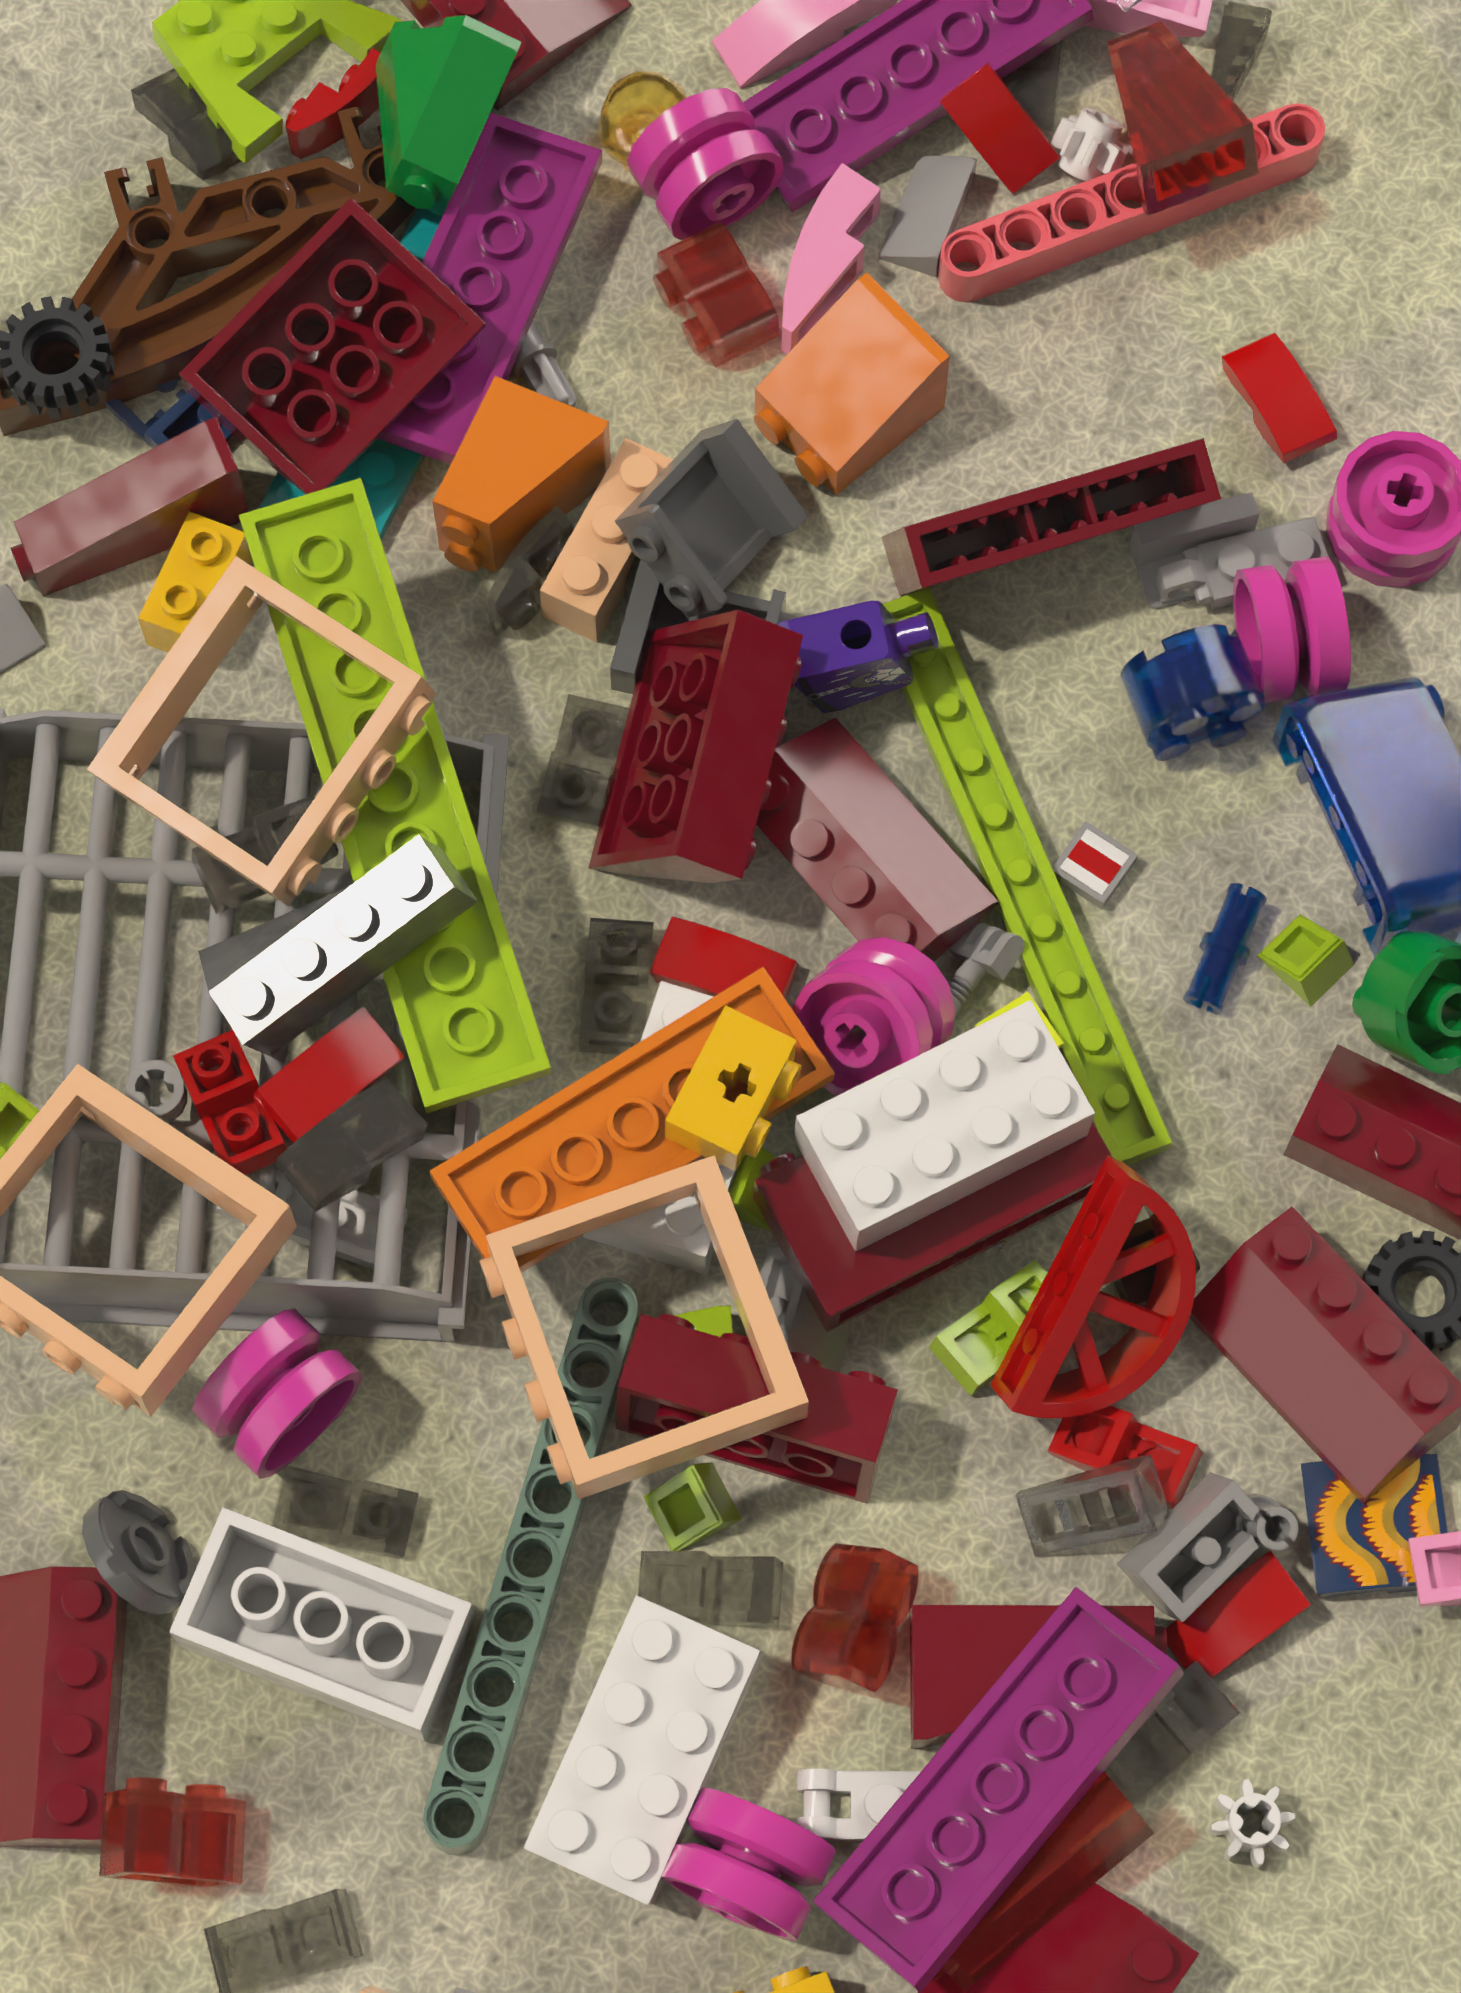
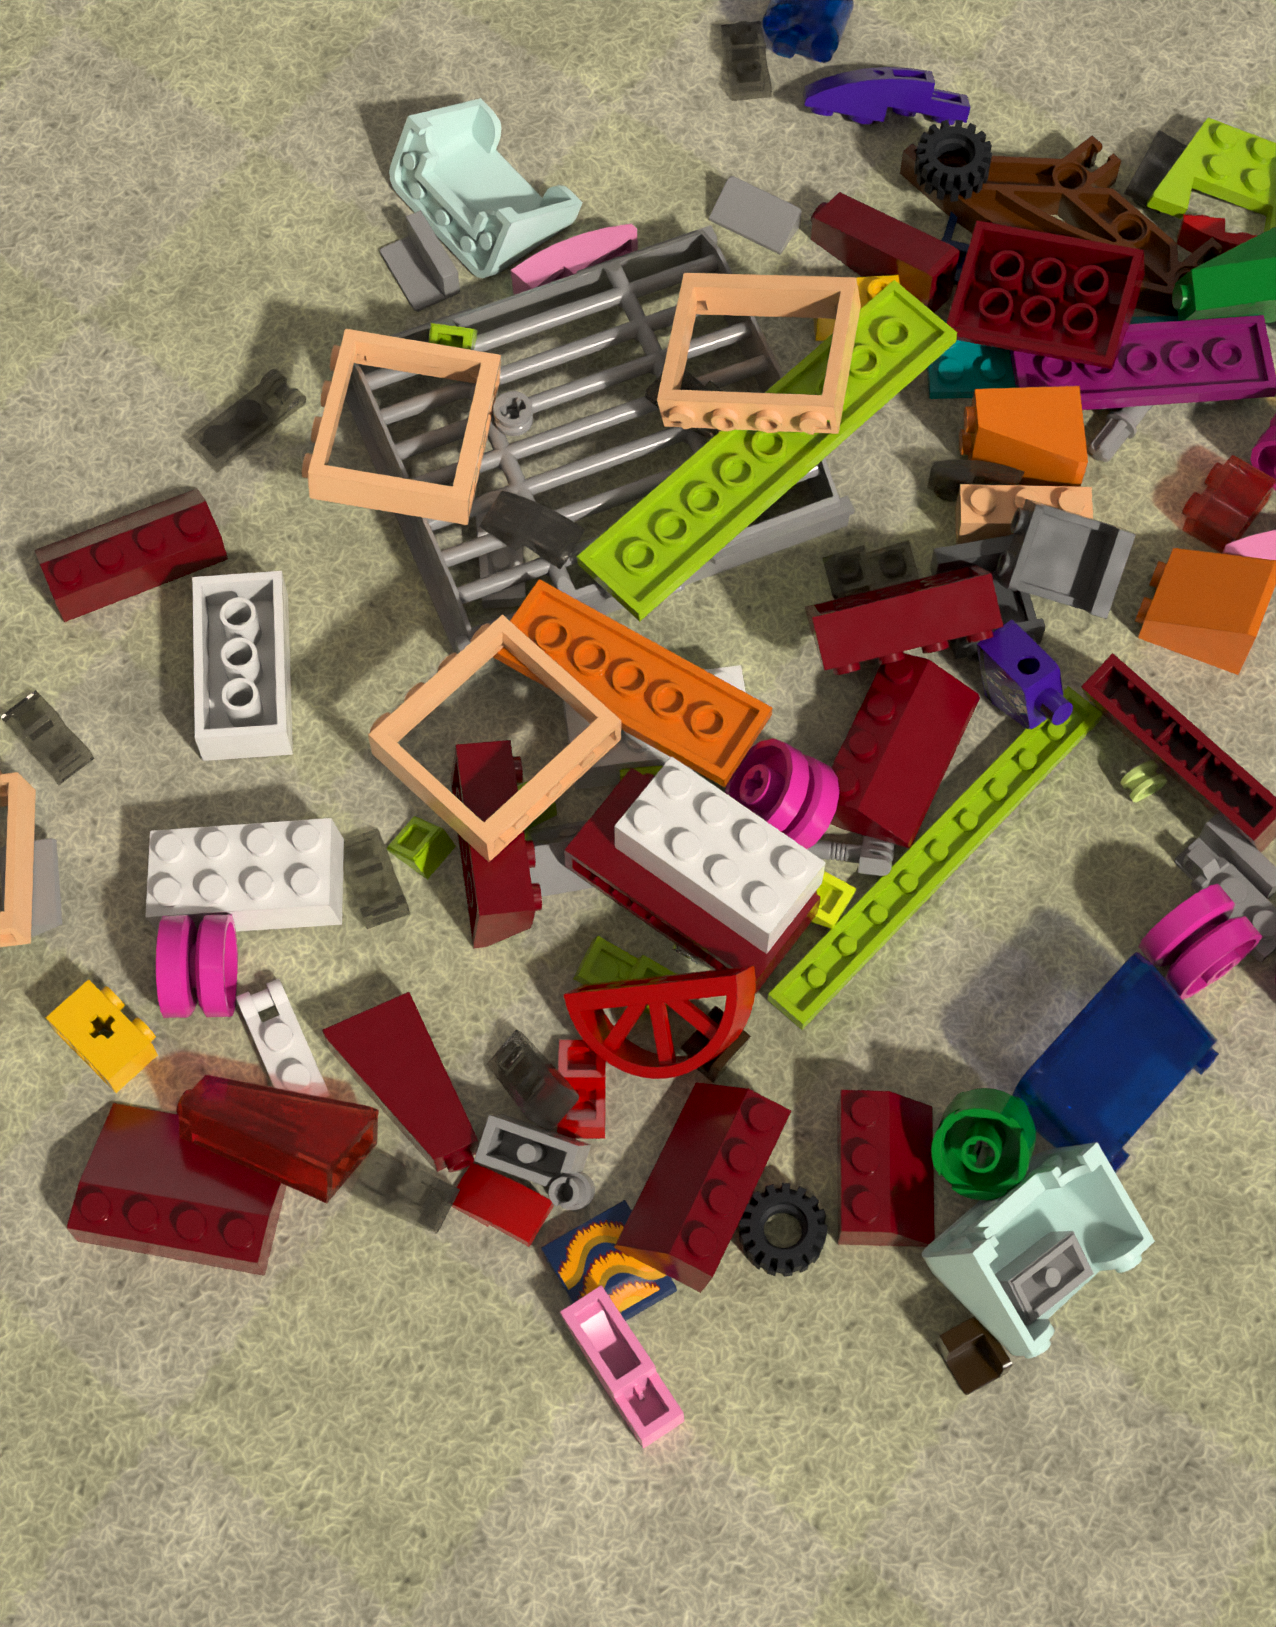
camera: 65 degrees right, 5 degrees down
(137, 1553) = (238, 540): dark grey tile -> none
(172, 1835) = (77, 642): clear red brick -> none
(224, 1098) = (527, 457): red slope -> none
(276, 1393) = (369, 572): dark pink wheel -> none
(314, 958) = (631, 450): wedge -> none
(329, 1074) = (571, 495): red slope -> none
(345, 1512) = (322, 651): clear smoke slope -> none
(523, 1594) = (315, 761): sand green beam -> none
(615, 985) = (748, 645): clear smoke slope -> none
(715, 960) = (779, 688): red slope -> none
(733, 1053) = (656, 703): yellow brick -> none
(857, 1607) = (375, 964): clear red brick -> none
(998, 1789) = (307, 1087): magenta plate -> none
(1039, 587) = (1143, 780): none -> yellowish green bush
(1094, 865) = (971, 899): tile -> none
(1193, 691) = (1120, 898): clear blue brick -> none
(1225, 948) = (958, 1004): clear blue pin -> none
(1233, 1822) = (359, 1259): white gear -> none
(1307, 958) = (981, 1061): lime slope -> none

